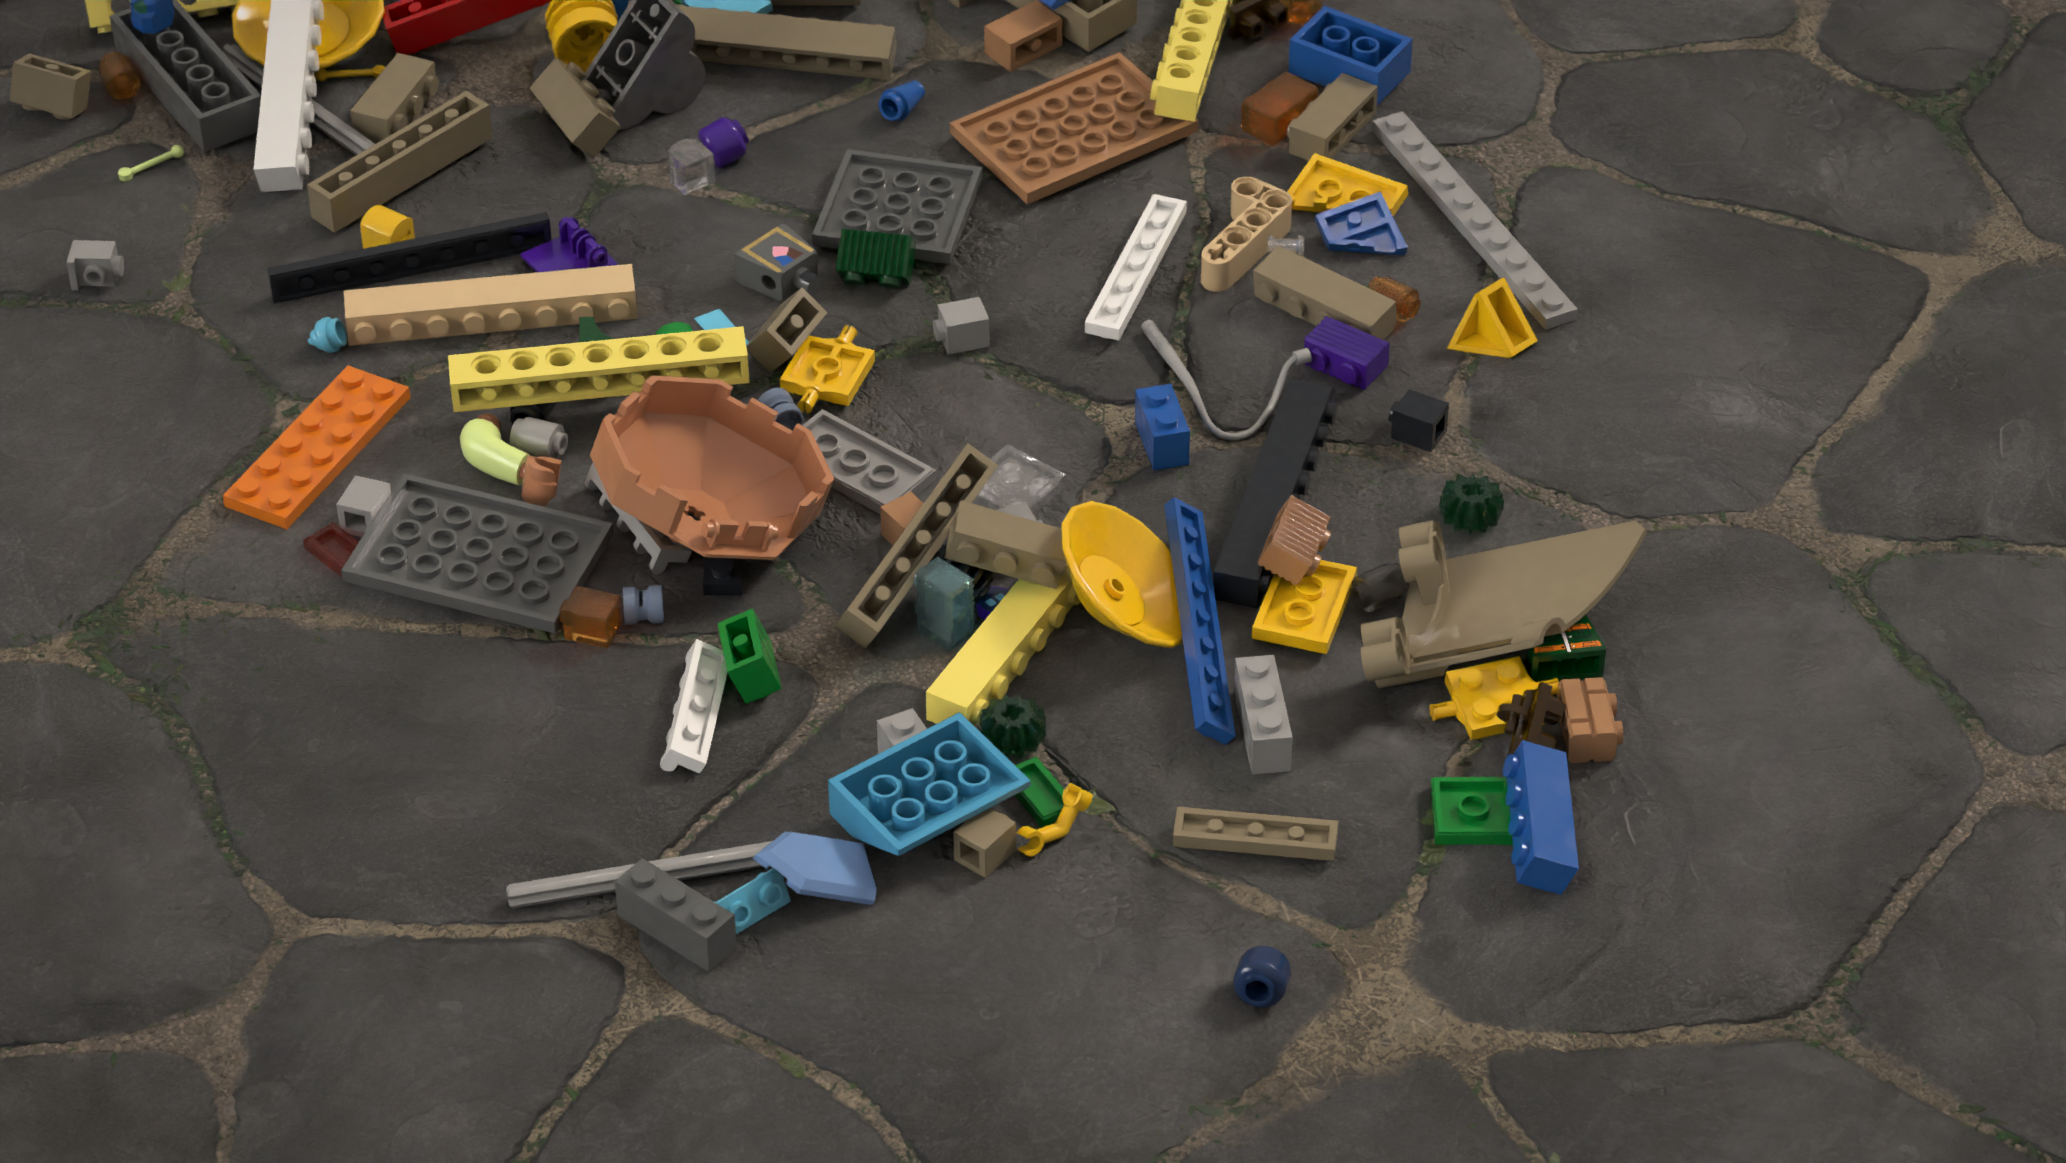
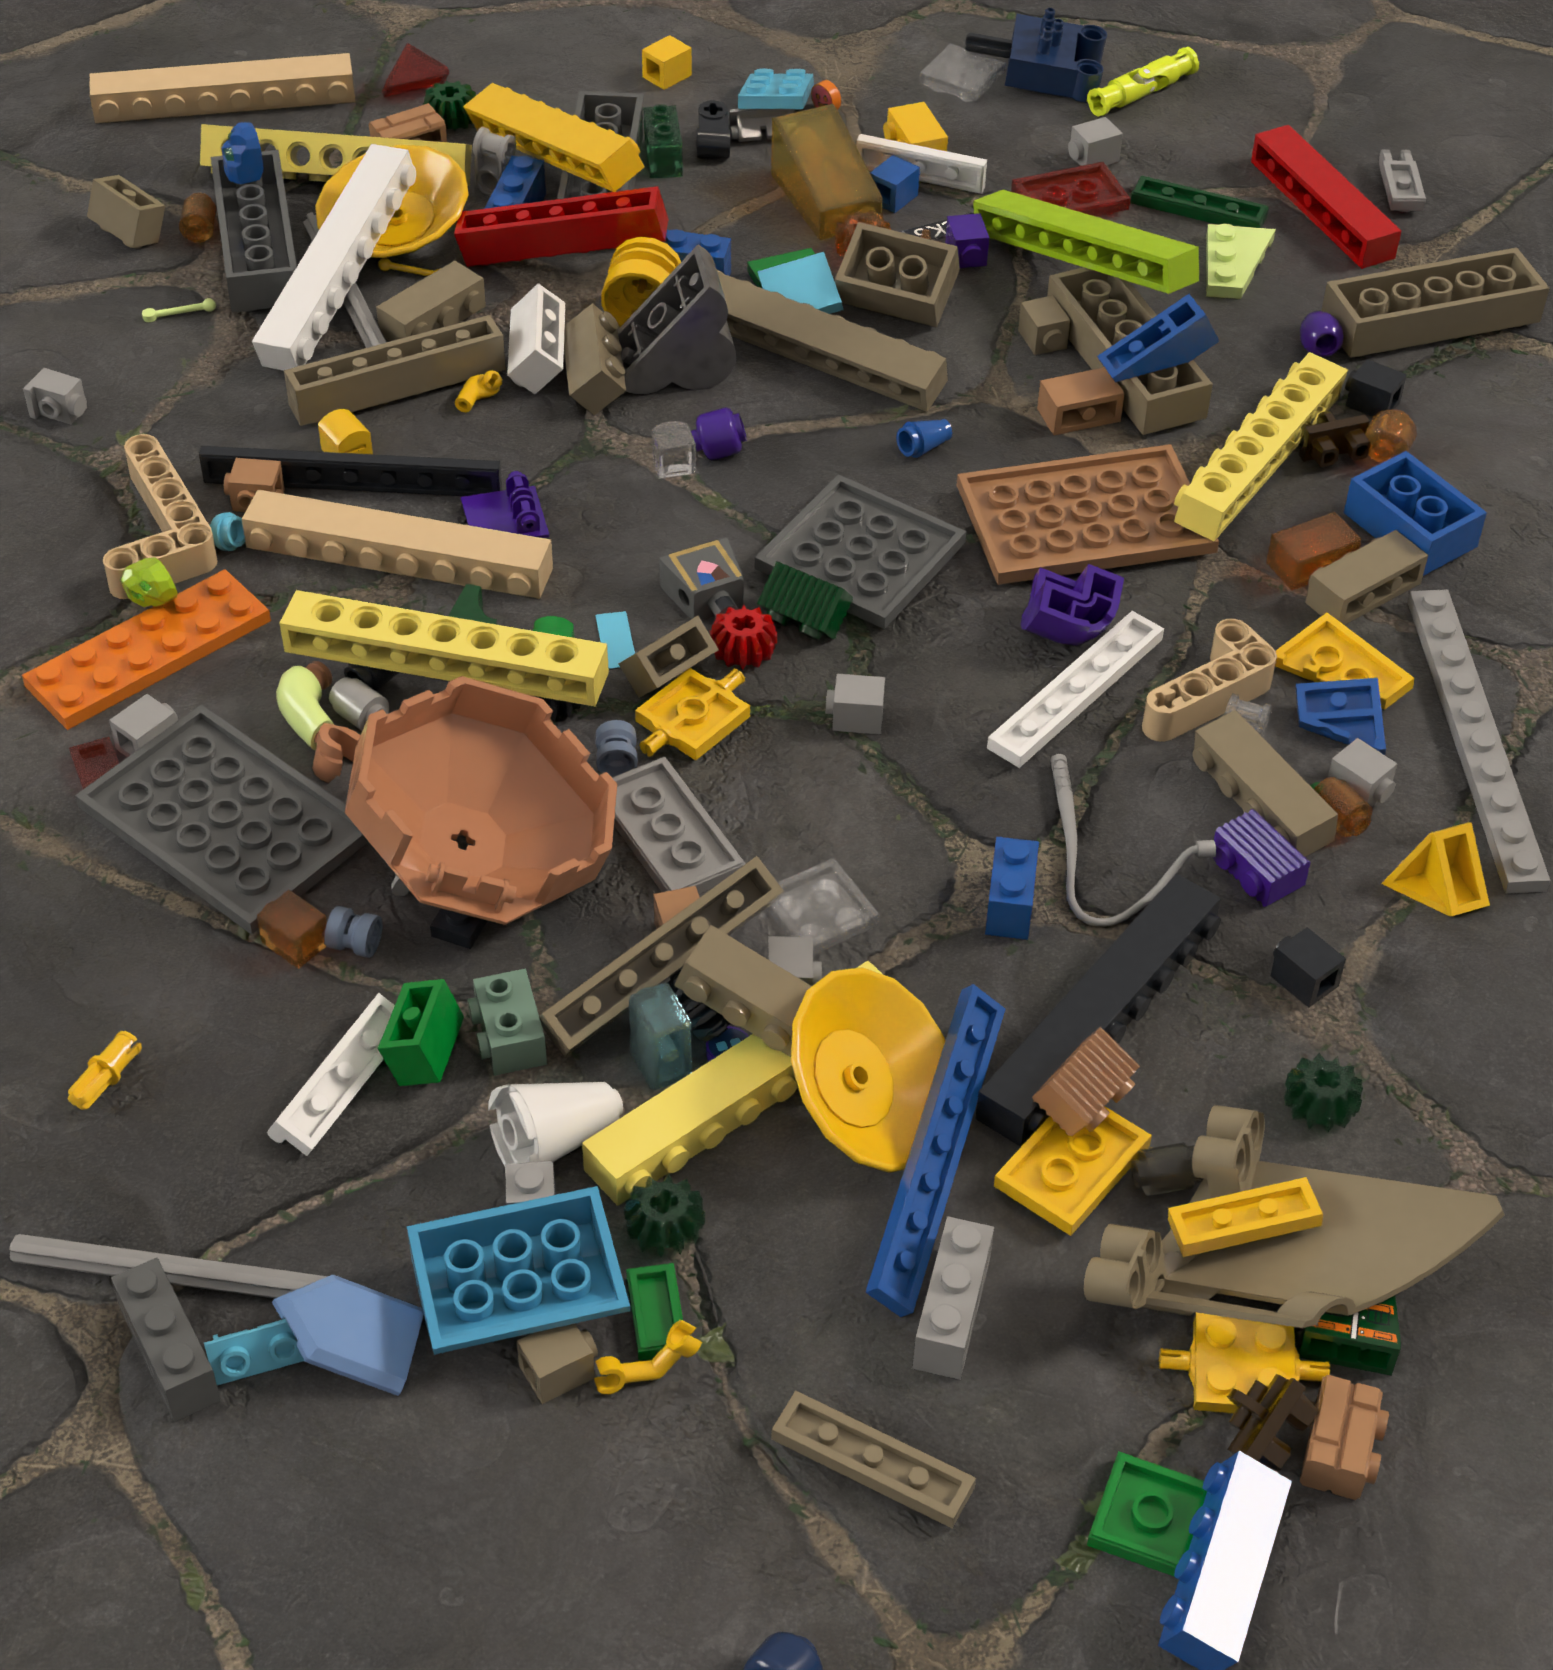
camera: 20 degrees right, 5 degrees up
(293, 348) = (186, 538): none -> tan beam
(296, 390) = (148, 583): none -> lime rock
(327, 288) = (248, 477): none -> medium nougat brick
(479, 159) = (478, 388): none -> yellow arm
(500, 757) = (104, 1070): none -> yellow axle
(513, 103) = (536, 339): none -> white brick
(811, 632) = (508, 1021): none -> sand green brick
(841, 297) = (744, 637): none -> red gear
(884, 686) = (549, 1118): none -> white cone
(1105, 205) = (1071, 609): none -> dark purple brick
(1400, 264) = (1365, 771): none -> light grey brick
(1456, 595) = (1245, 1217): none -> yellow plate

